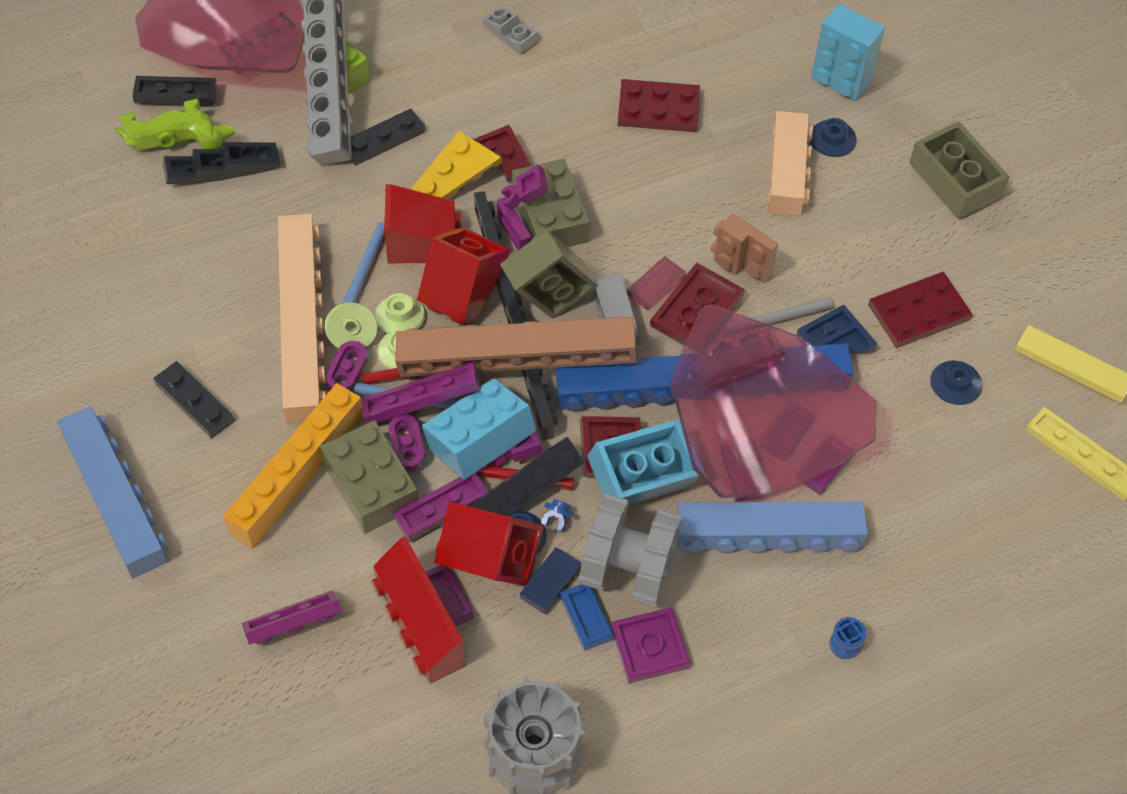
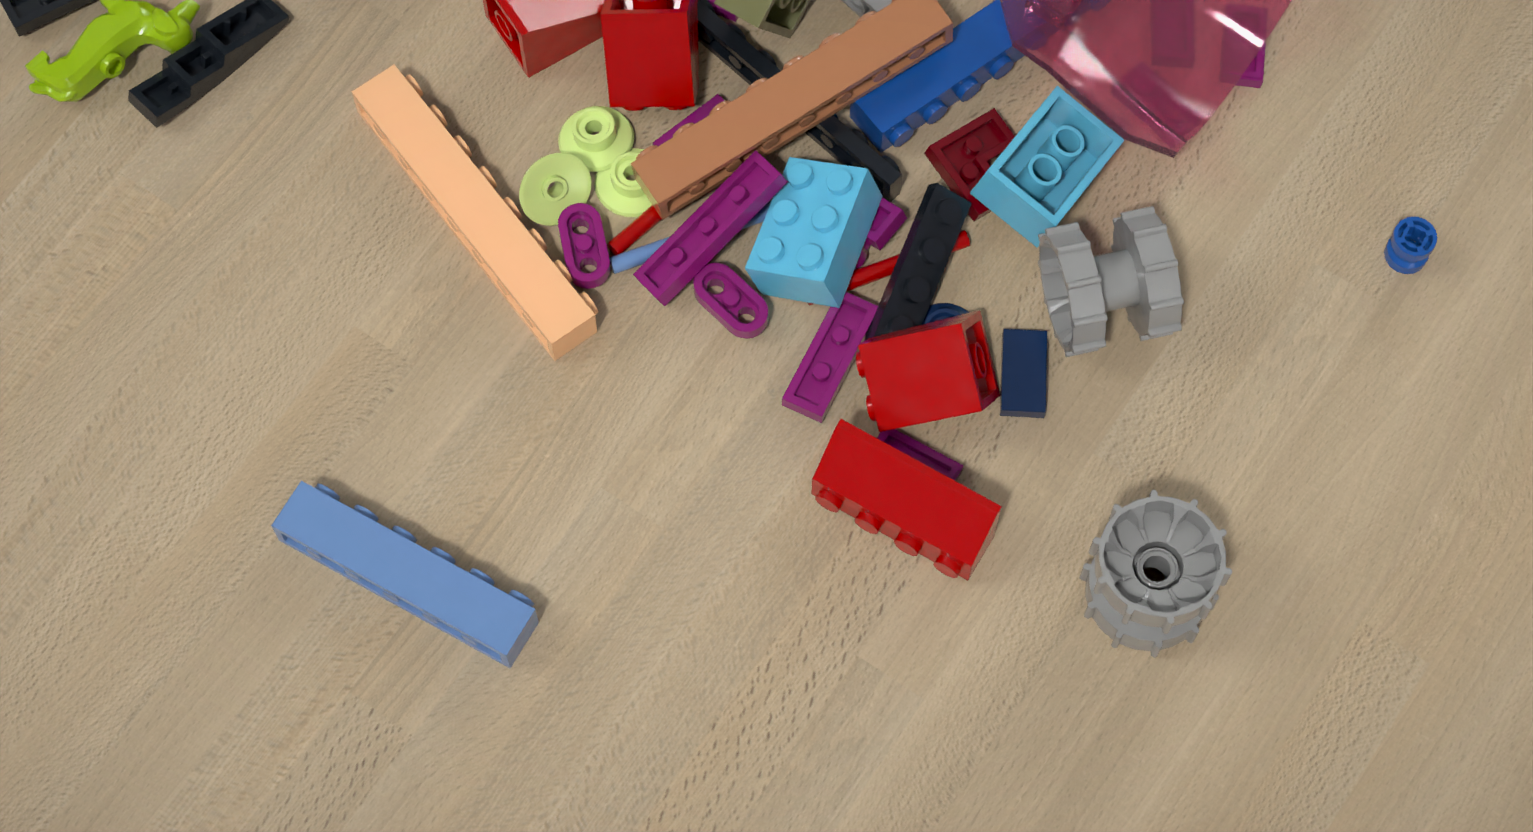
camera: 30 degrees left, 10 degrees up
(194, 399) = (415, 396): black plate -> none
(291, 618) = (751, 599): magenta plate -> none
(292, 466) = (615, 409): light orange brick -> none
(365, 264) = (505, 101): medium blue bar -> none
(368, 475) = (718, 369): olive brick -> none
(559, 510) = (976, 280): blue plate -> none
(586, 616) = (1095, 392): blue tile -> none
(650, 645) = (1191, 383): magenta tile -> none
(771, 526) = (1243, 154): medium blue brick -> none

